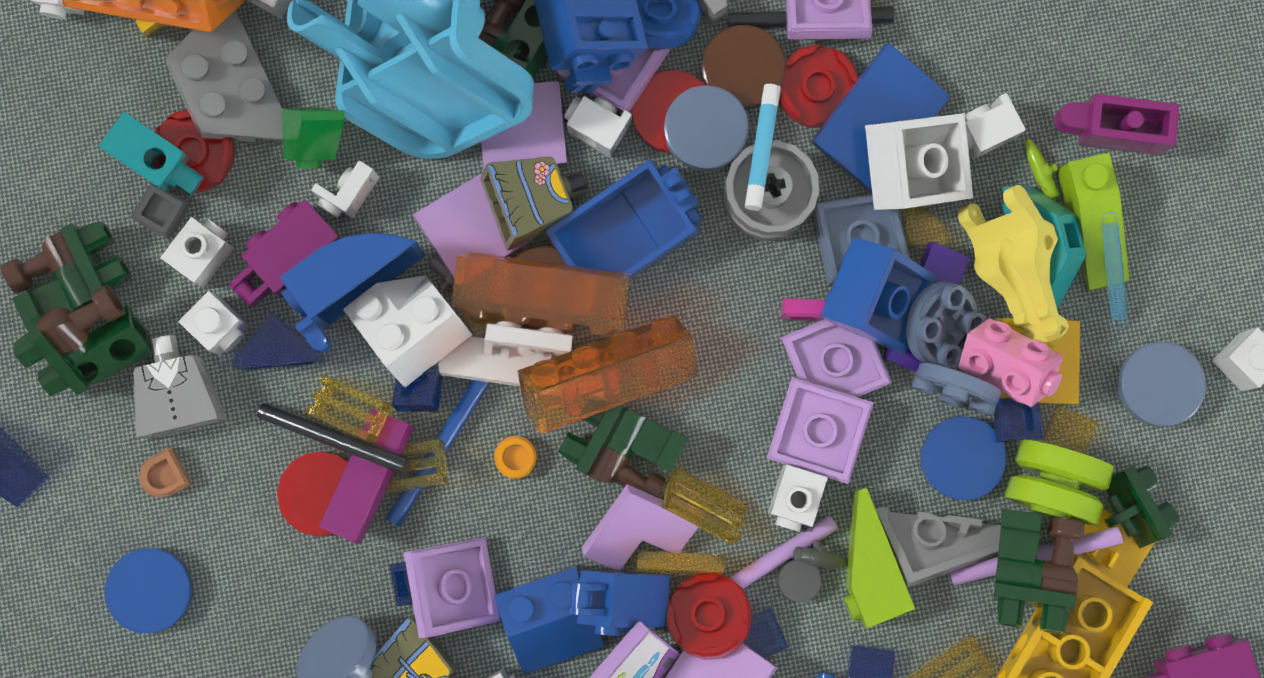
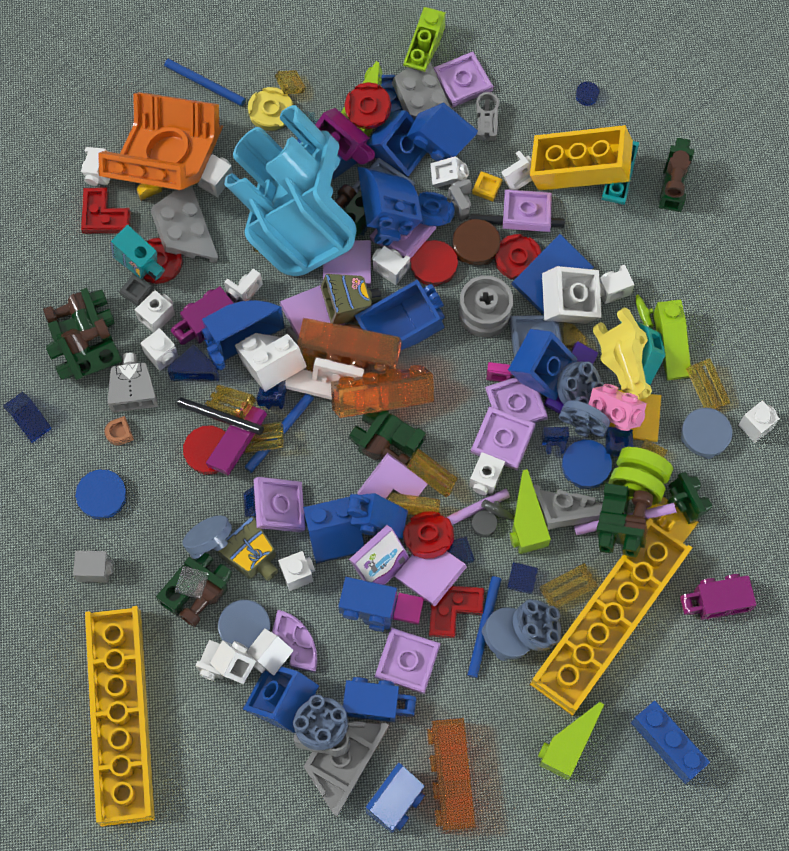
camera: 10 degrees right, 15 degrees down
(75, 79) = (99, 218): none -> red tile
(311, 135) = (228, 252): green slope -> none
(515, 457) = (324, 440): light orange tile -> none
(706, 128) = (451, 269): sand blue tile -> none
(762, 147) = (482, 277): medium azure bar -> none
(905, 419) = (555, 436): none -> clear blue tile
(1121, 123) = (690, 286): magenta brick -> none
(1121, 270) = (680, 369): medium azure piece -> none
(1143, 267) = (716, 381): none -> clear yellow tile

